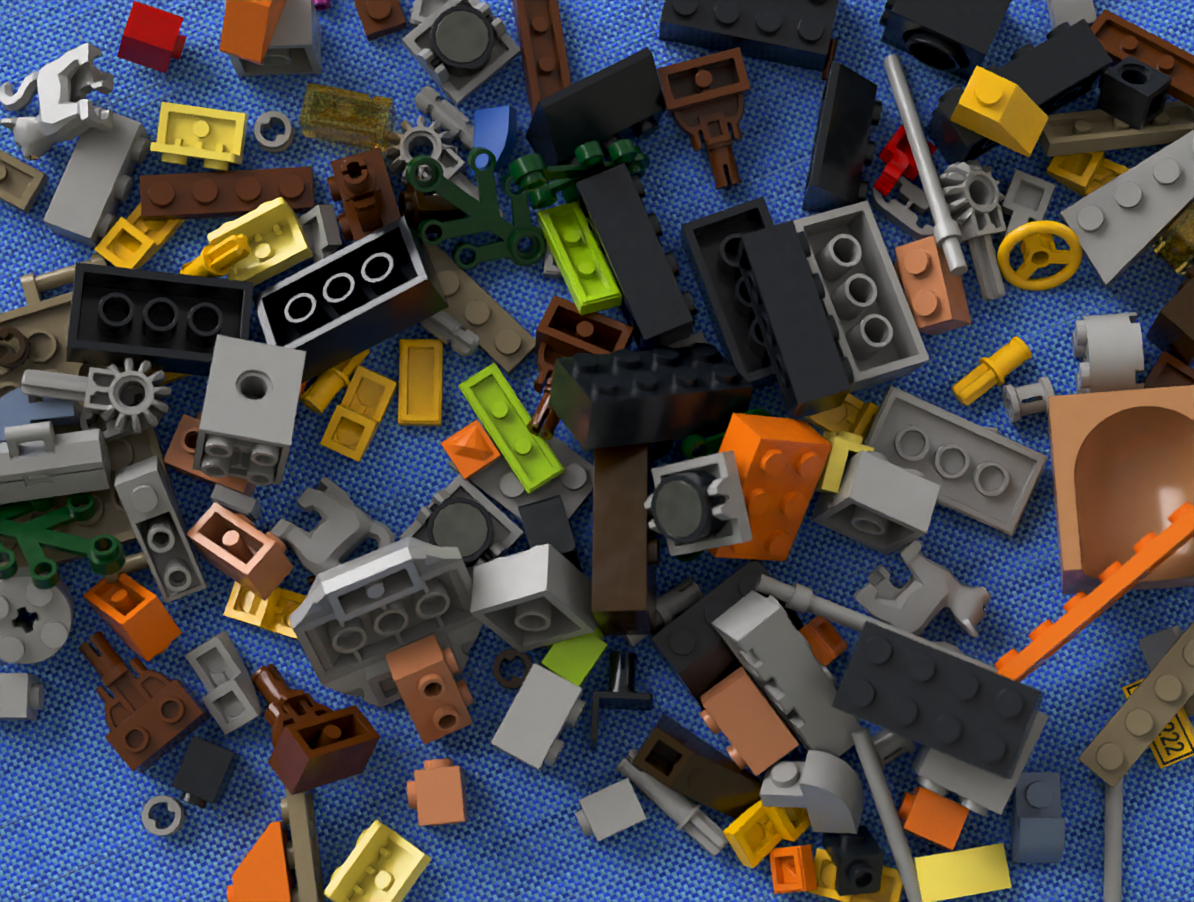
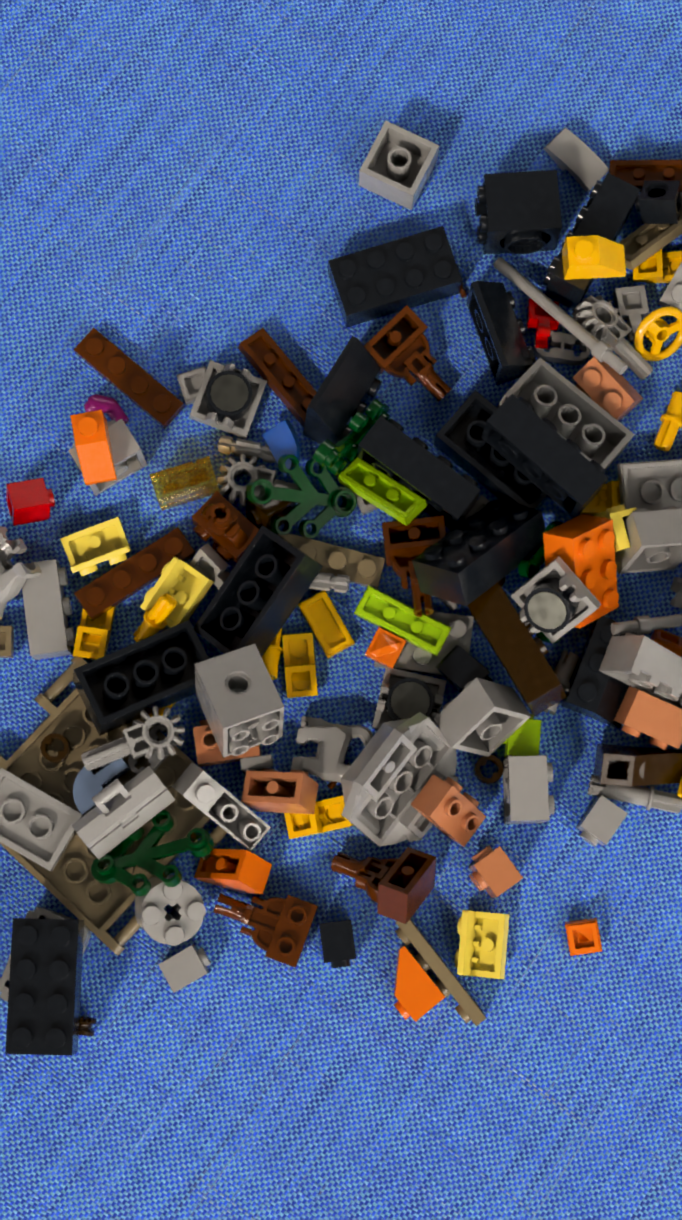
camera: 30 degrees left, 0 degrees up
(152, 825) = (322, 994): light grey bush -> none
(229, 687) = (318, 879): light grey slope -> none
(281, 141) = (149, 520): light grey bush -> none
(620, 692) = (564, 747): black bracket -> none

